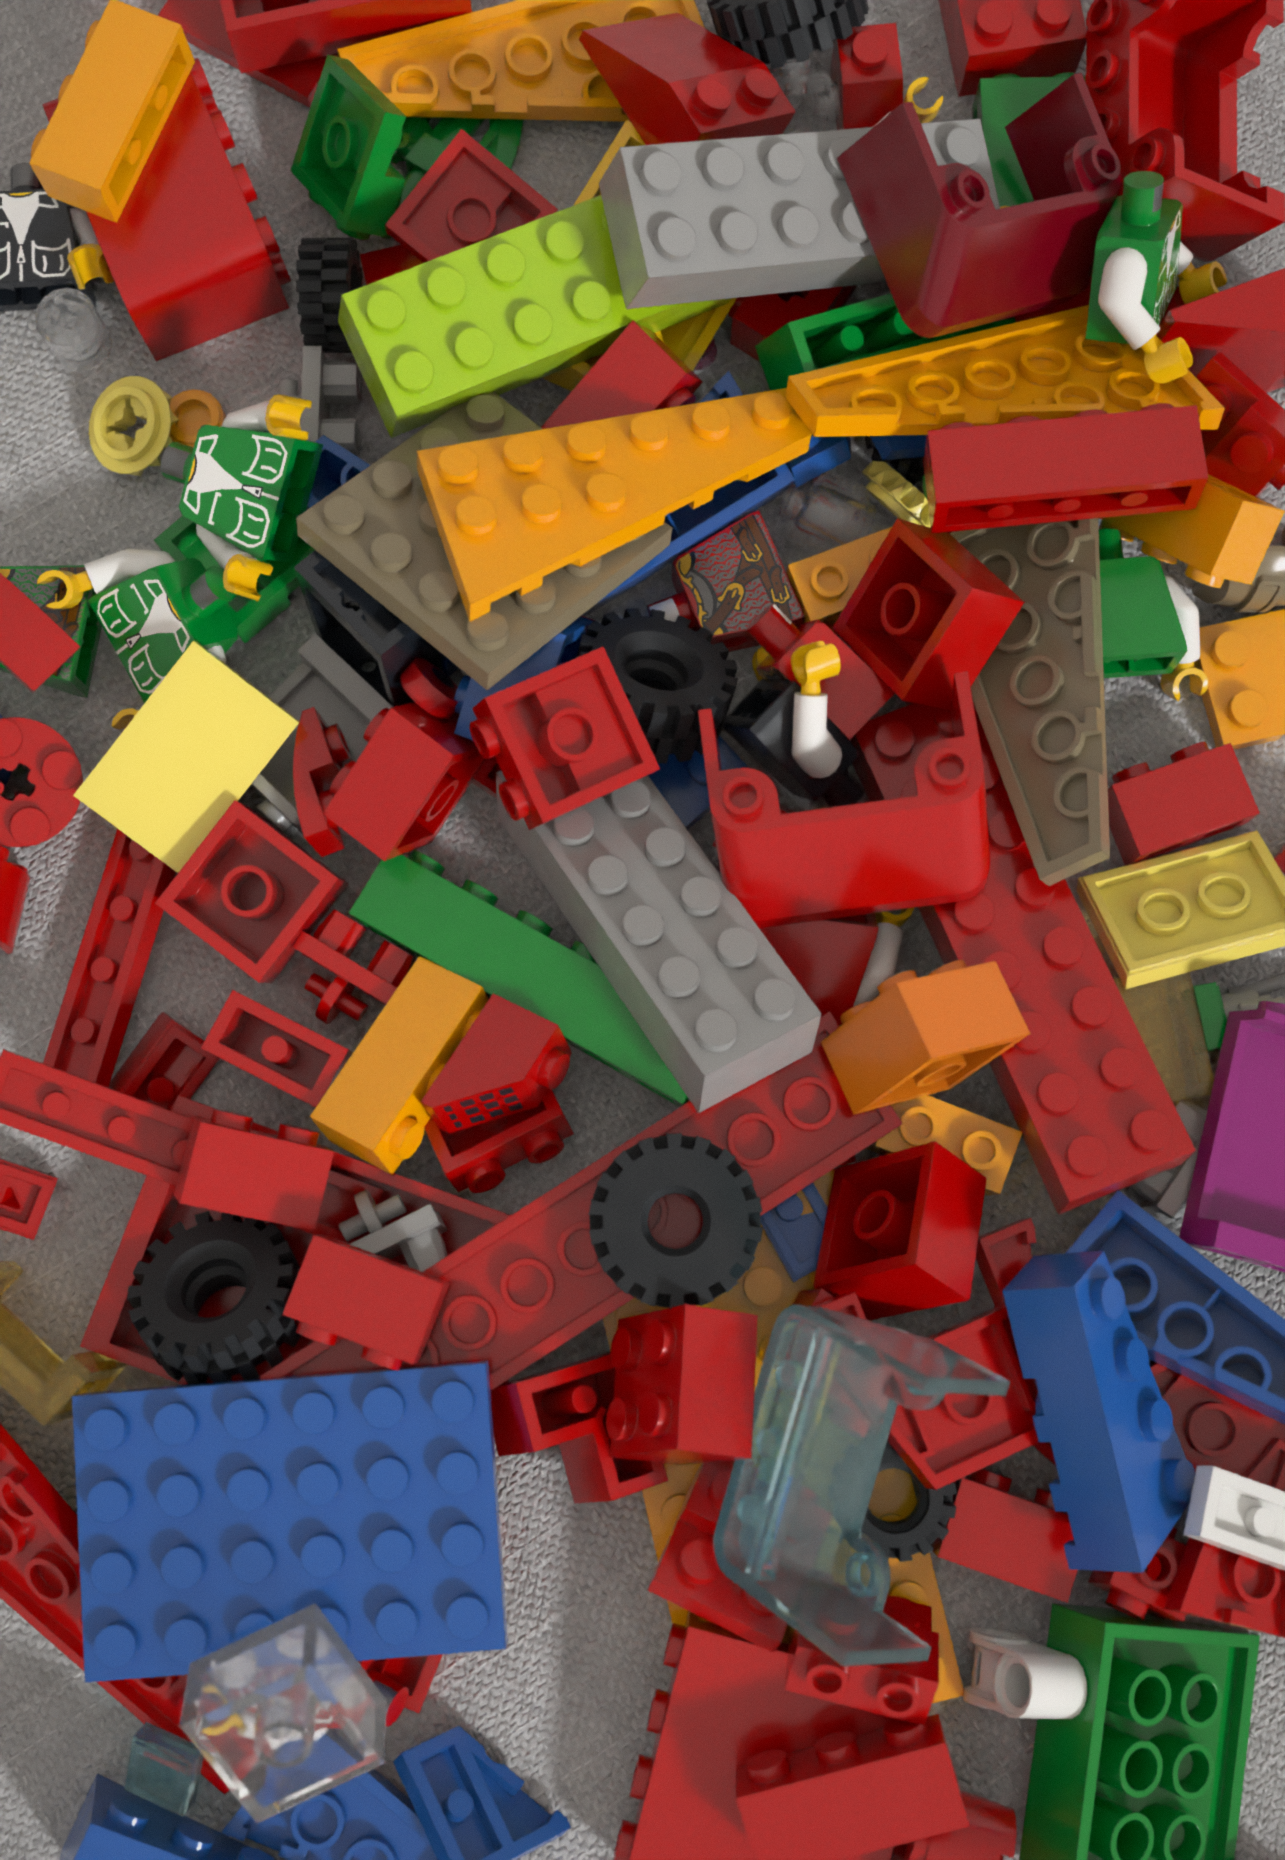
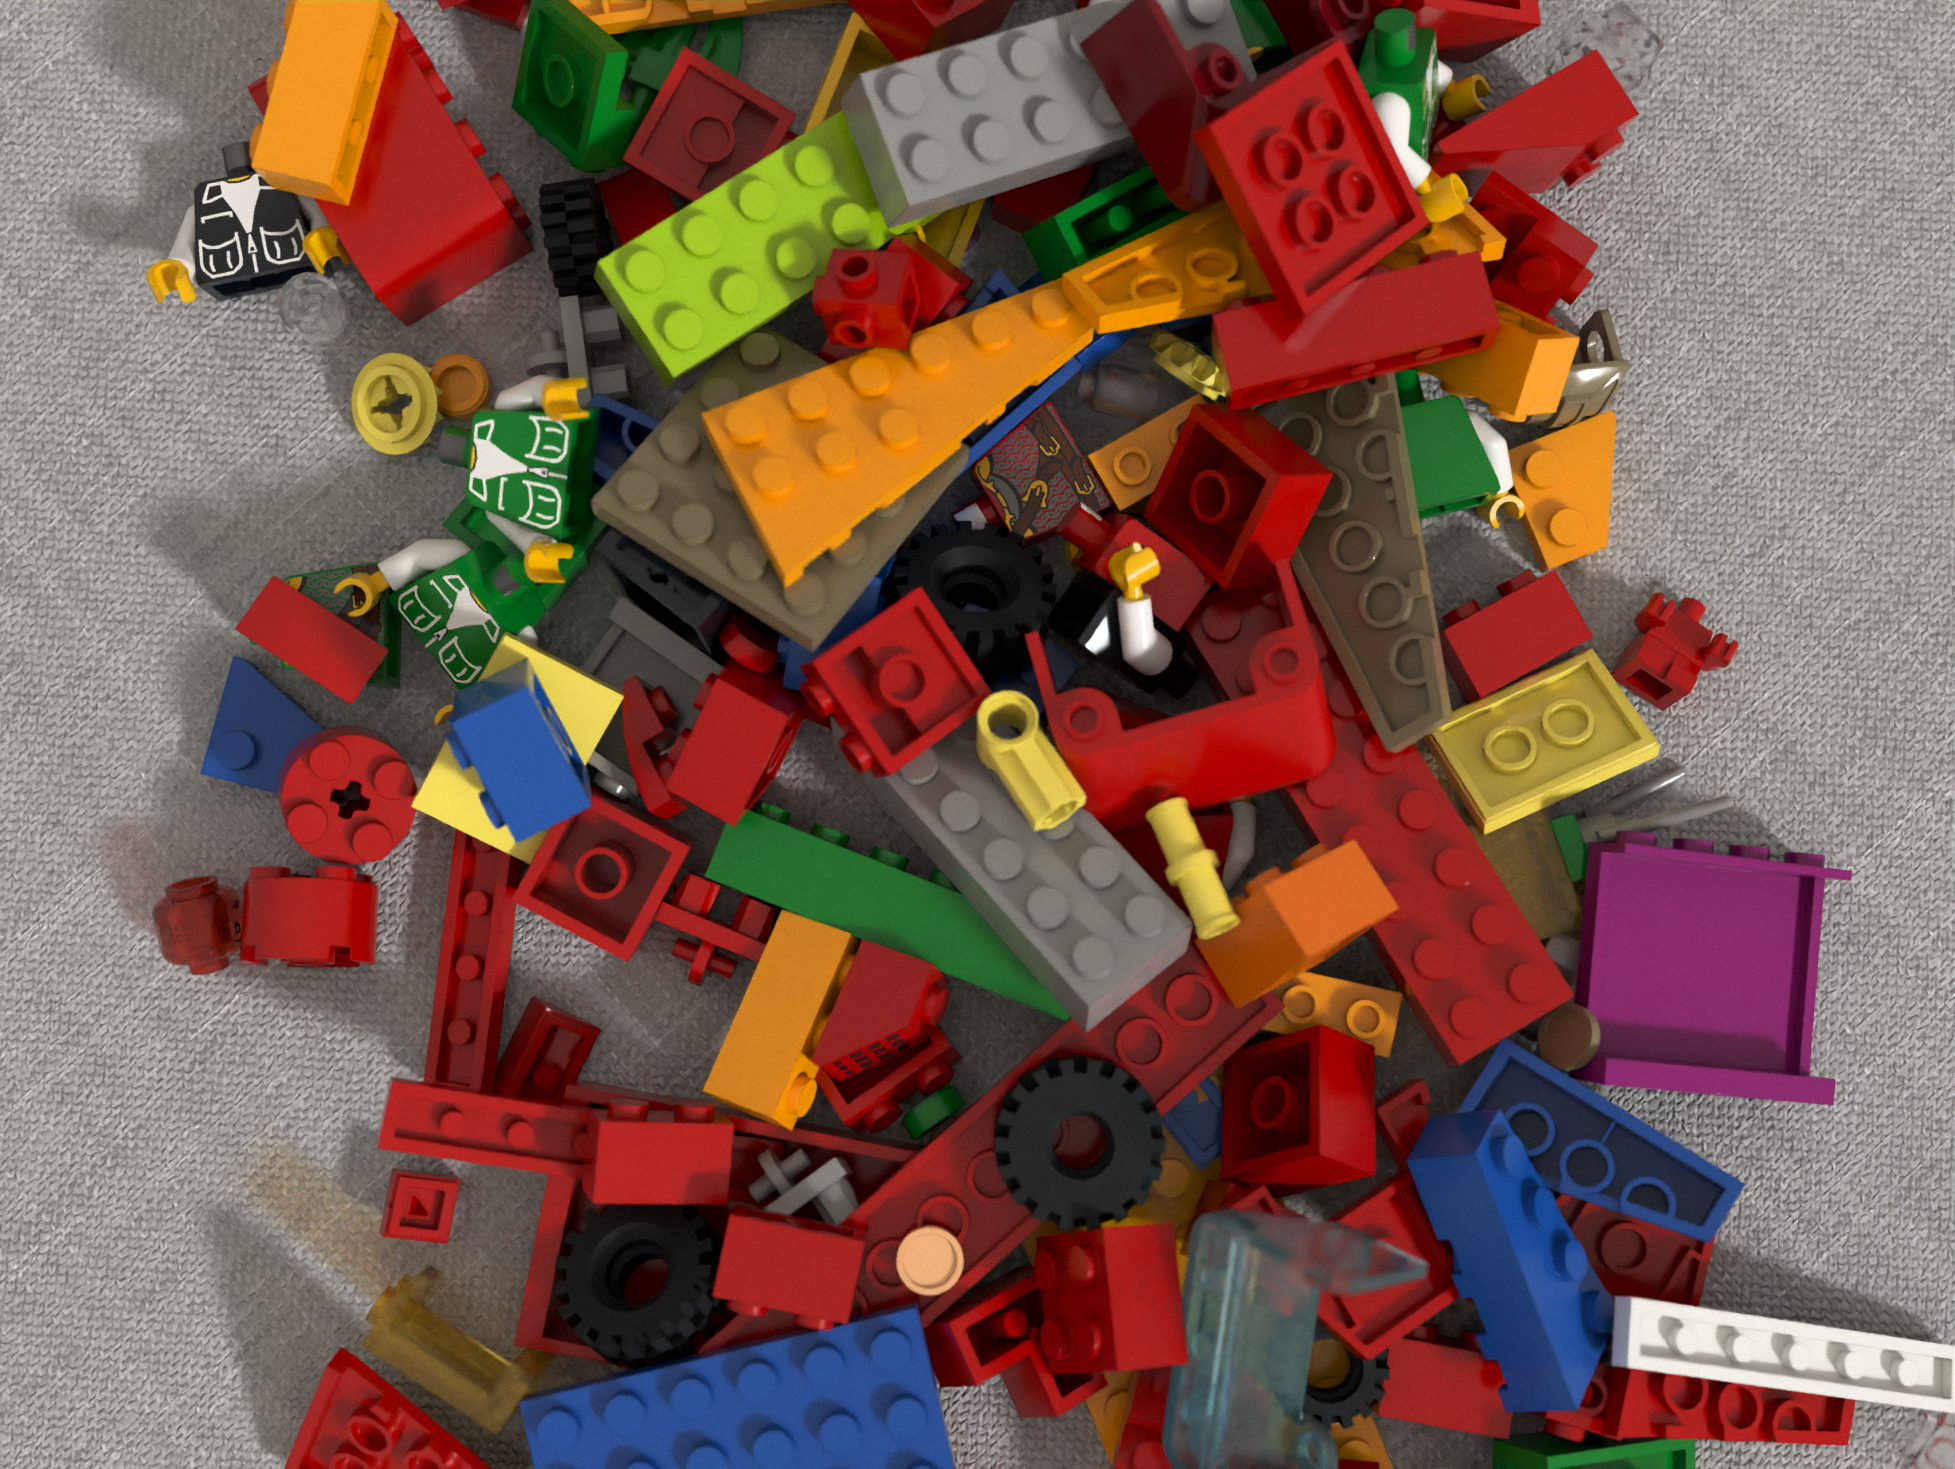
camera: 10 degrees left, 5 degrees up
(184, 749) = (519, 752): none -> blue brick
(275, 1049) = (658, 1024): red brick -> none
(507, 1320) = (929, 1260): none -> light nougat piece
(534, 1182) = (933, 1111): none -> green tile
(596, 370) = (868, 298): none -> red brick
(680, 833) = (1027, 763): none -> light yellow piece
(829, 962) = (1192, 868): none -> light yellow pin
(1042, 310) = (1312, 179): none -> red plate
(1184, 1198) = (1568, 1036): none -> dark tan piece

